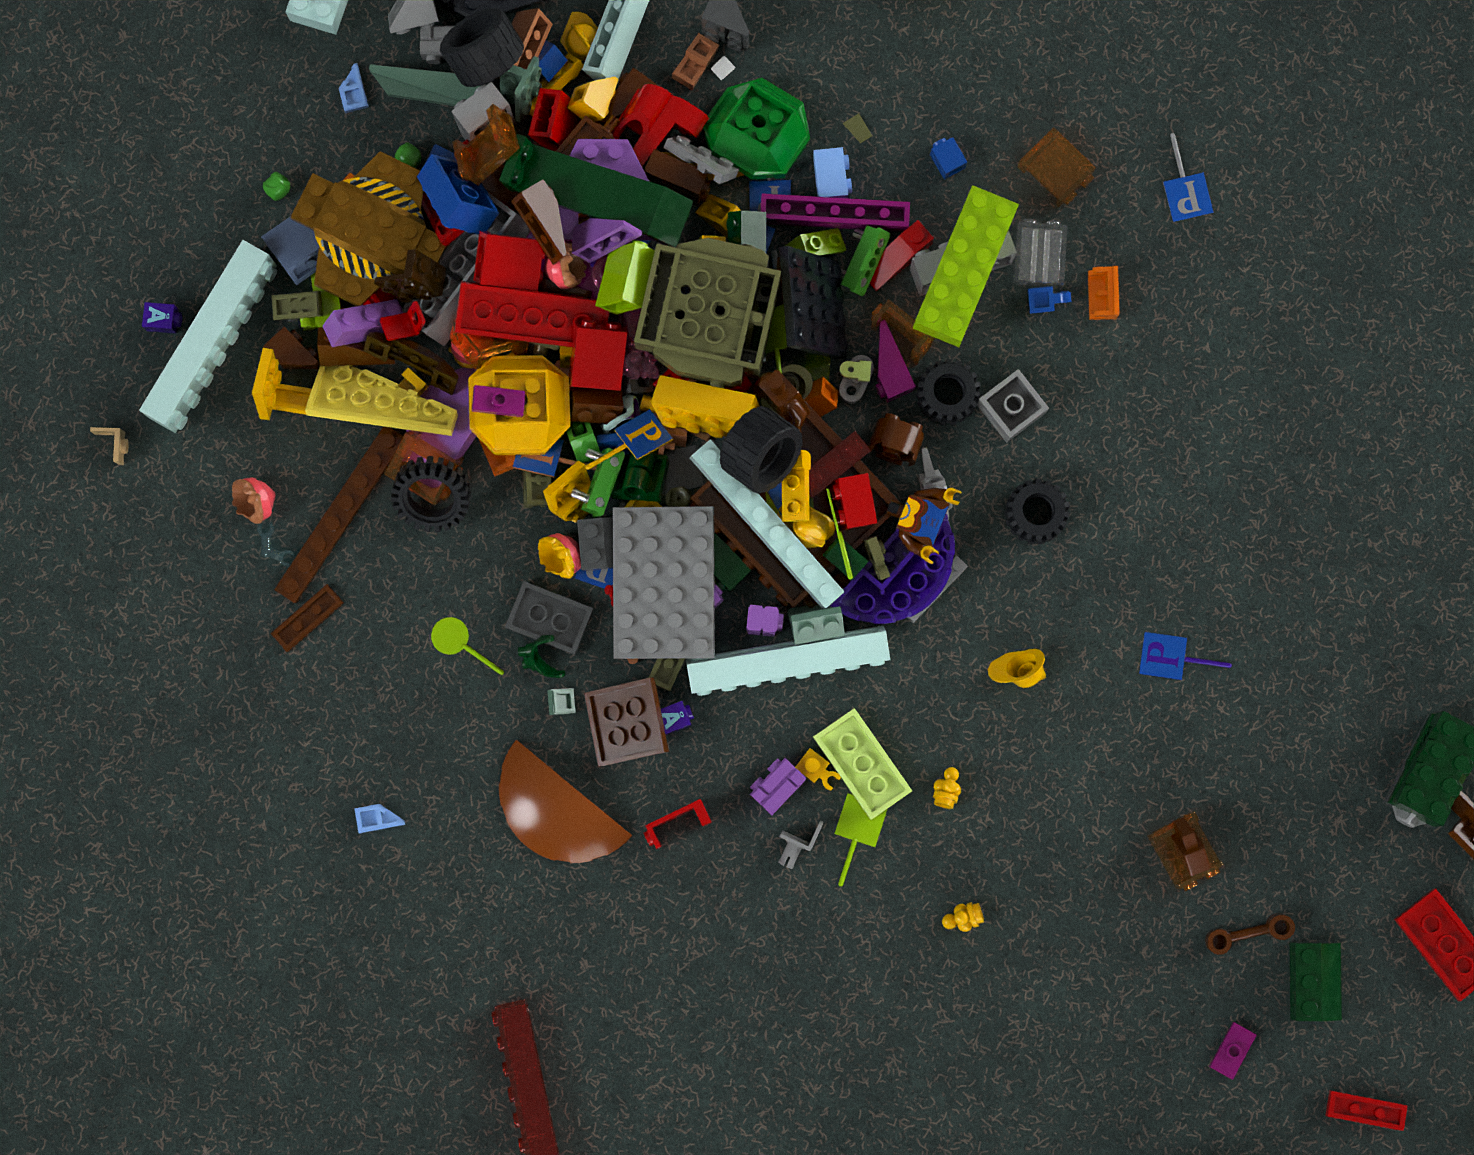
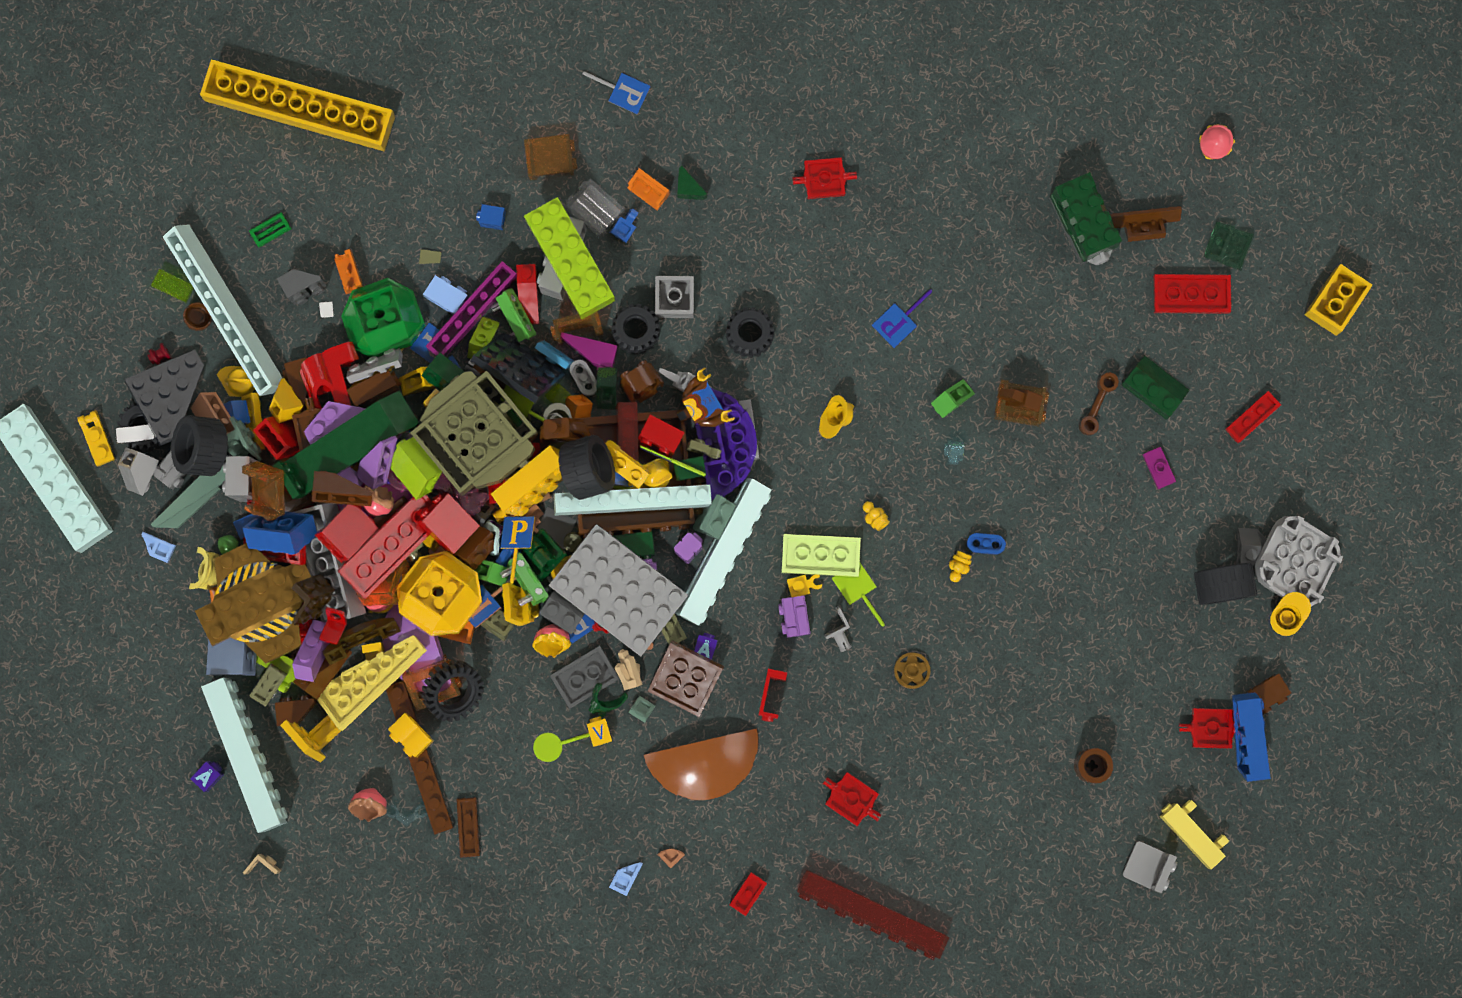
camera: 55 degrees left, 0 degrees up
(276, 186) = (181, 641): bright green piece -> none
(354, 487) = (410, 735): none -> yellow brick
(360, 158) = (206, 571): none -> light yellow helmet
(433, 848) = (670, 856): none -> nougat tile
(455, 957) = (748, 894): none -> red plate
(498, 401) = (429, 604): magenta plate -> none
(504, 675) = (599, 731): none -> yellow brick
(589, 657) = (628, 670): none -> tan rock
(634, 990) = (852, 799): none -> red plate
(695, 61) = (309, 323): nougat slope -> none
(779, 59) = (348, 271): none -> orange hinge
(816, 951) = (912, 670): none -> pearl gold wheel
(856, 330) = (554, 355): none -> dark azure plate
(861, 370) = (581, 370): yellowish green piece -> none
(863, 410) = (607, 388): none -> clear green slope
(1008, 927) = (986, 543): none -> blue plate
(1079, 820) = (954, 451): none -> clear light blue plate
(1134, 775) = (952, 398): none -> bright green slope
(1138, 332) = (688, 187): none -> dark green slope
(1260, 464) = (824, 178): none -> red plate

